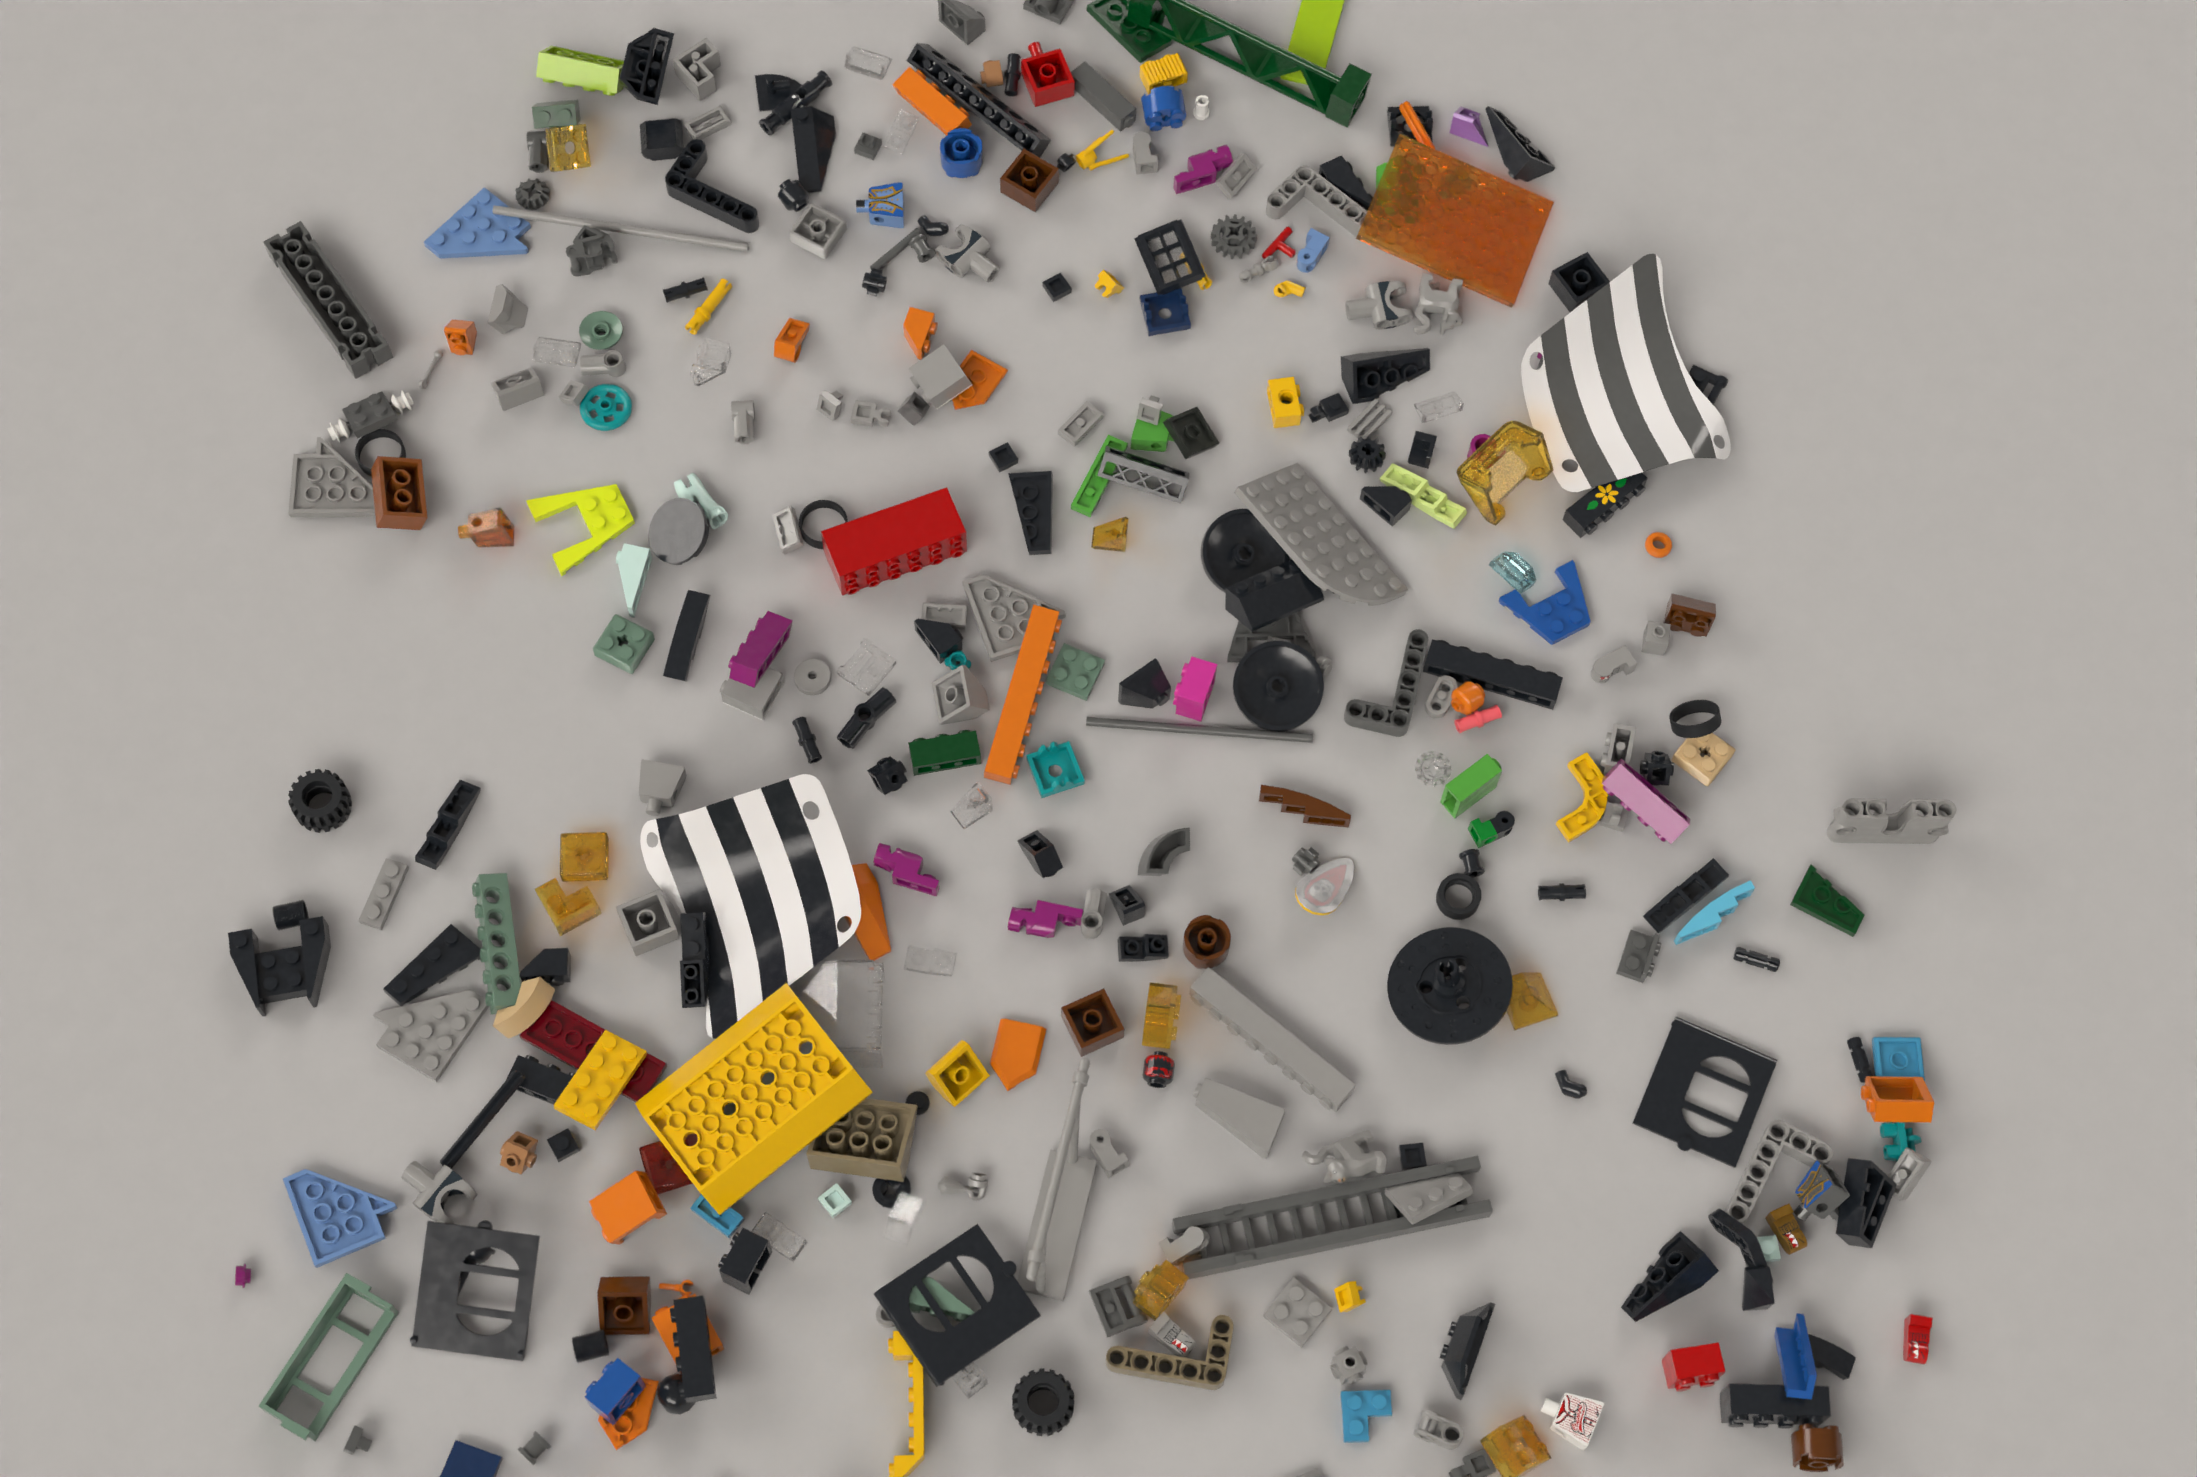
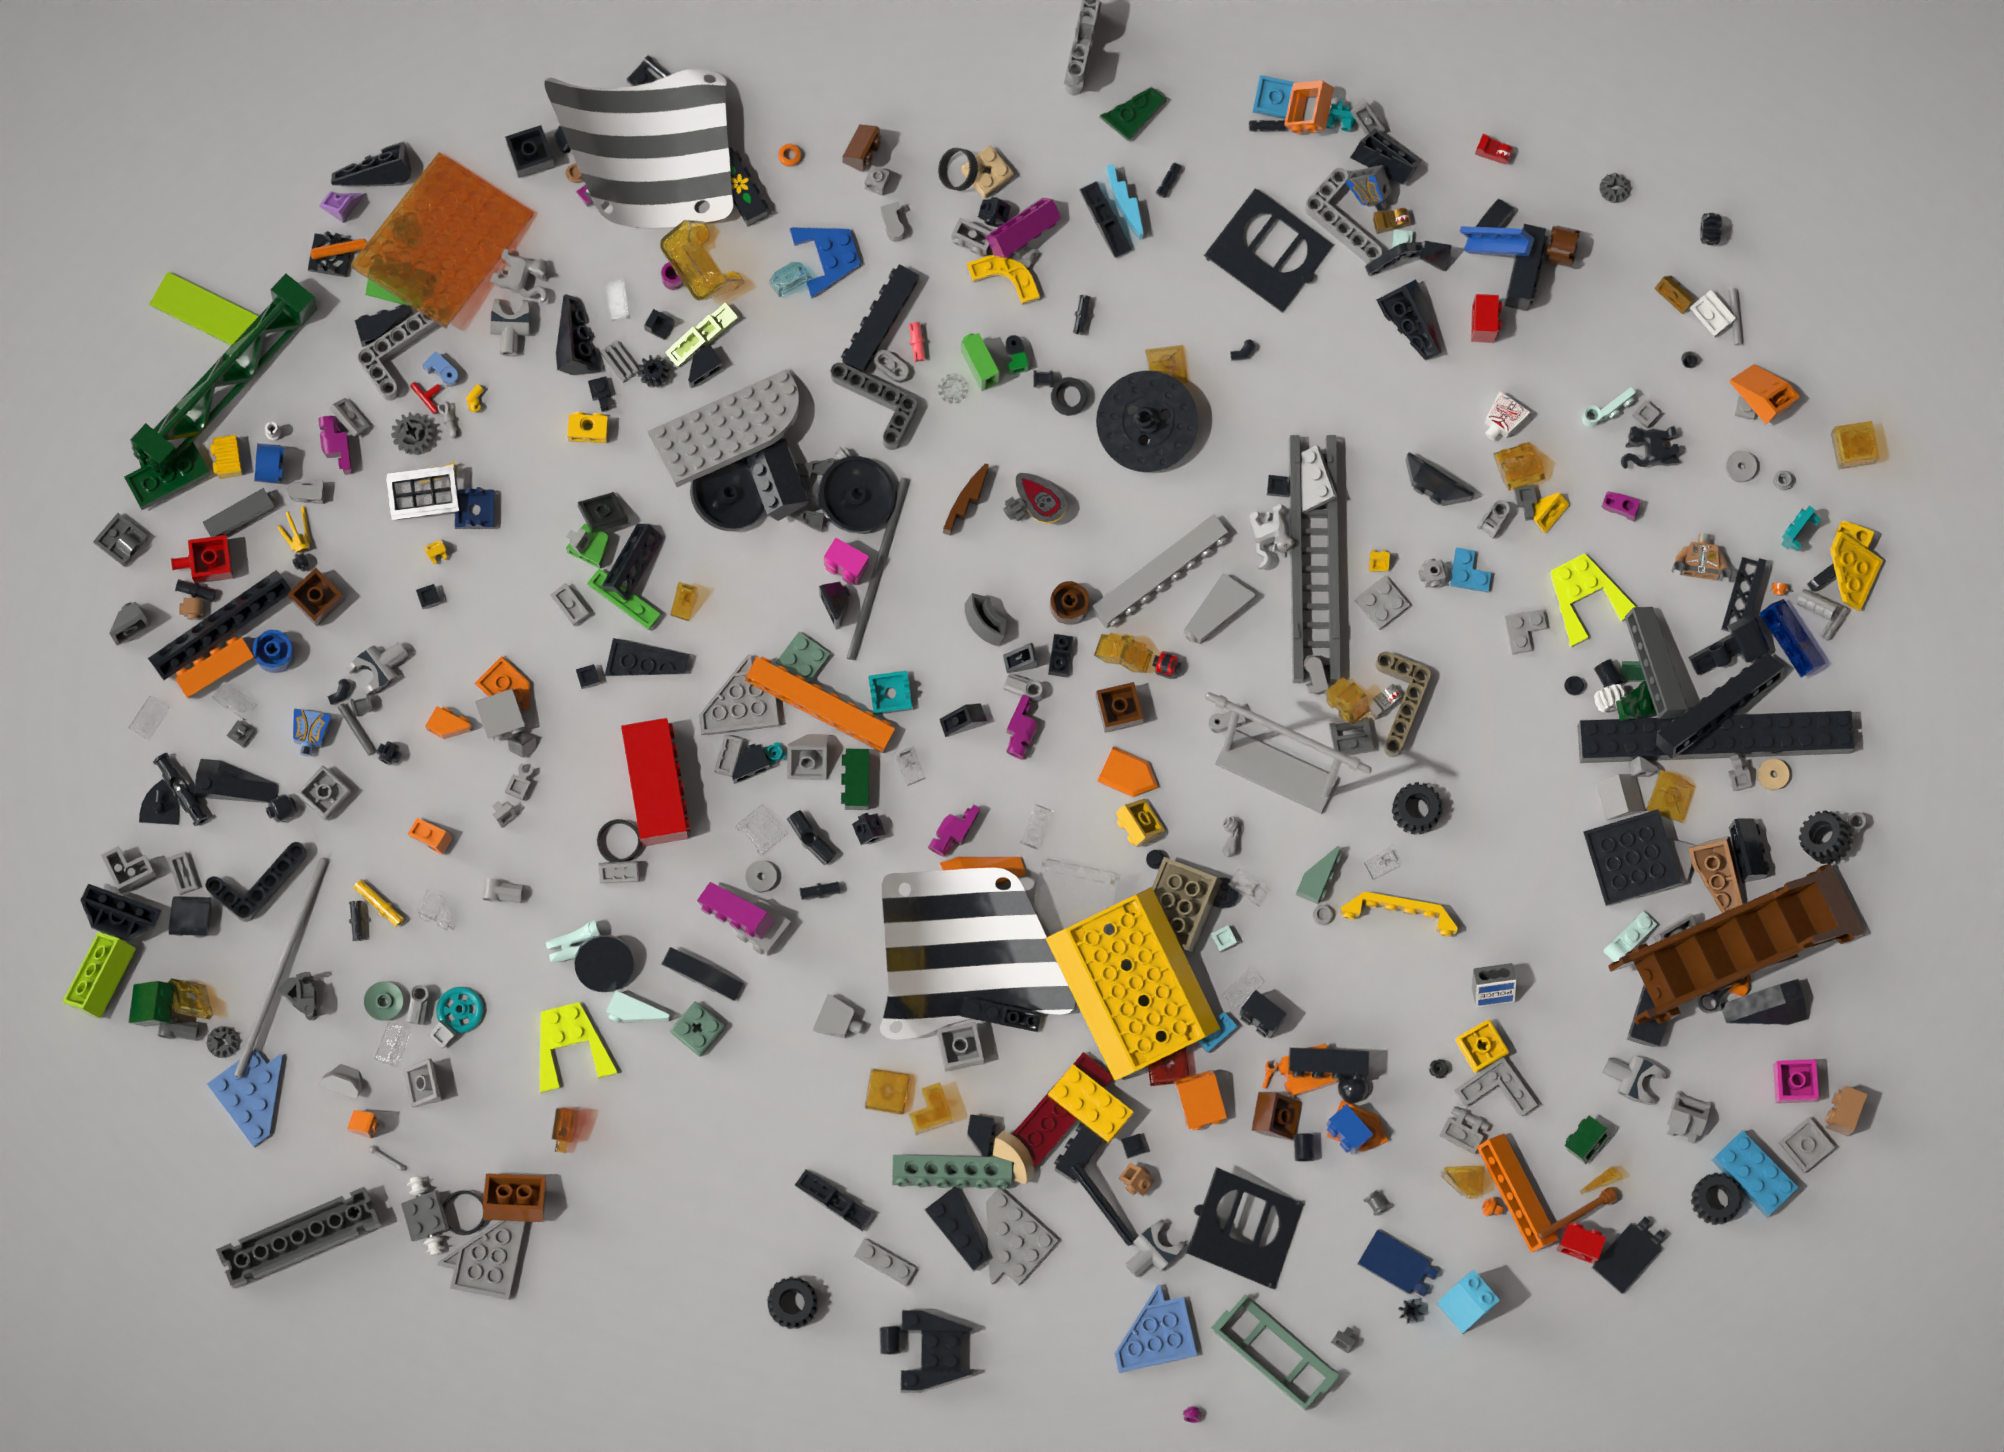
camera: 80 degrees left, 10 degrees up
(960, 1345) = (1362, 859): black door -> none
(1467, 698) = (899, 344): orange head -> none
(1638, 956) = (1147, 269): dark grey bracket -> none

